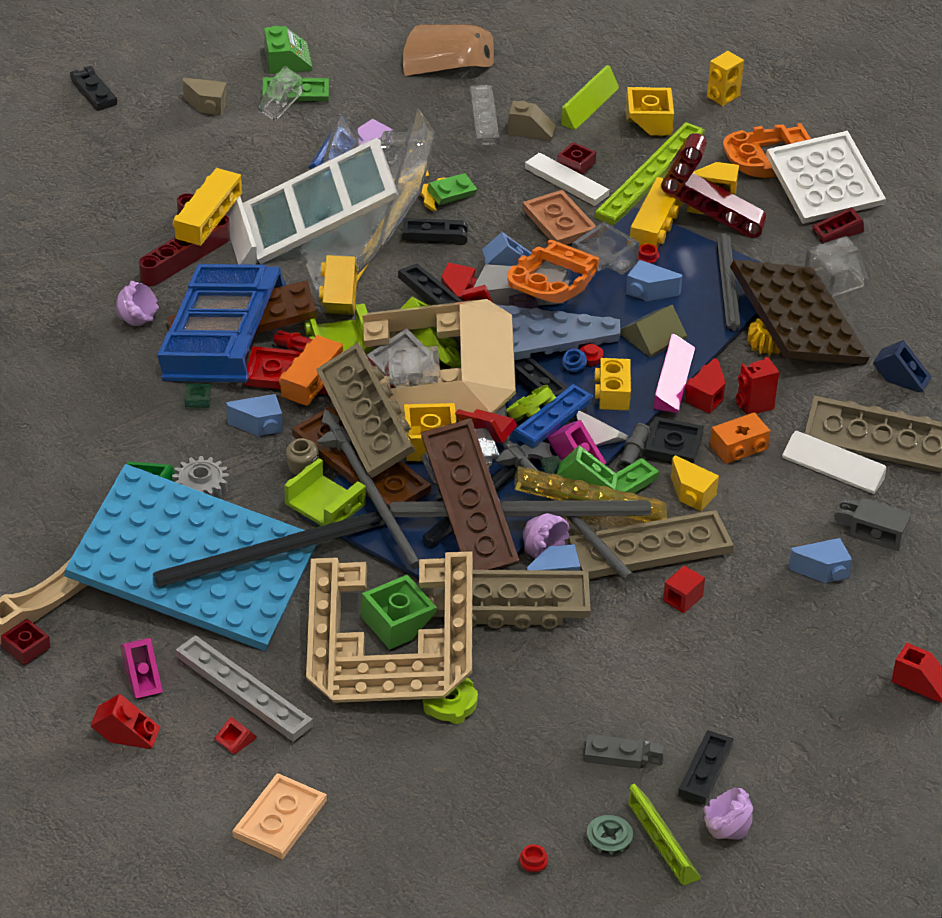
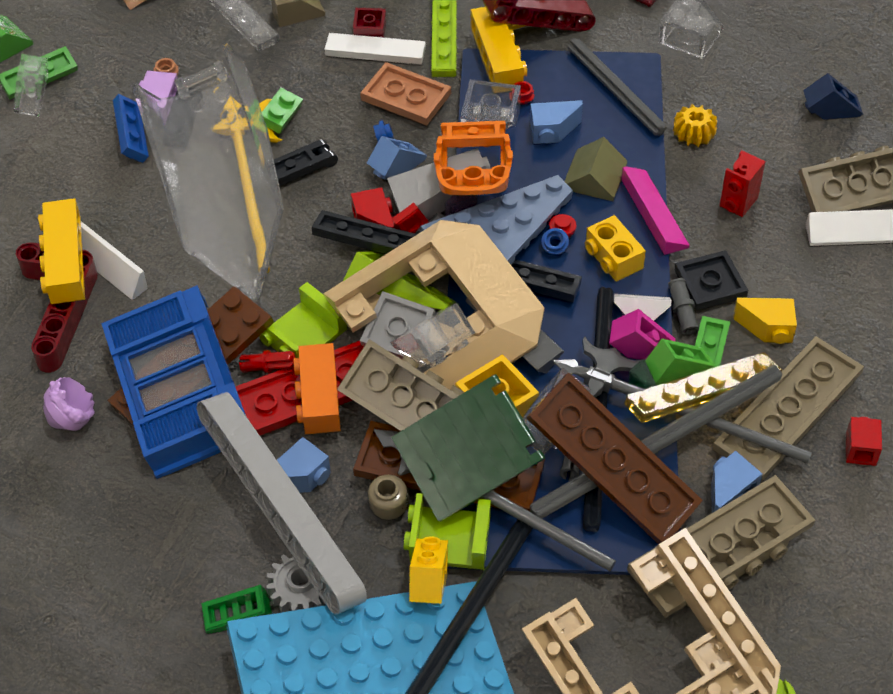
camera: 30 degrees left, 10 degrees up
(197, 395) = (214, 479): clear green plate -> none
(217, 414) = (282, 504): none -> light grey beam
(286, 504) = (428, 570): none -> yellow brick
(320, 200) = (178, 187): door -> none
(340, 284) = (272, 273): yellow slope -> none
(371, 442) = (469, 447): none -> dark green door
(394, 123) = (166, 65): none -> nougat plate
(396, 611) = (636, 632): bright green slope -> none
(498, 426) = (549, 360): red panel -> none
(517, 234) = (383, 130): none -> blue plate
(530, 404) = (564, 312): lime plate -> none
(544, 532) = (695, 455): lavender hair -> none
(552, 416) = (596, 316): blue tile -> none
(706, 388) = (692, 206): red slope -> none
(739, 438) = (766, 246): orange brick -> none
(799, 312) = (706, 88): dark brown plate -> none

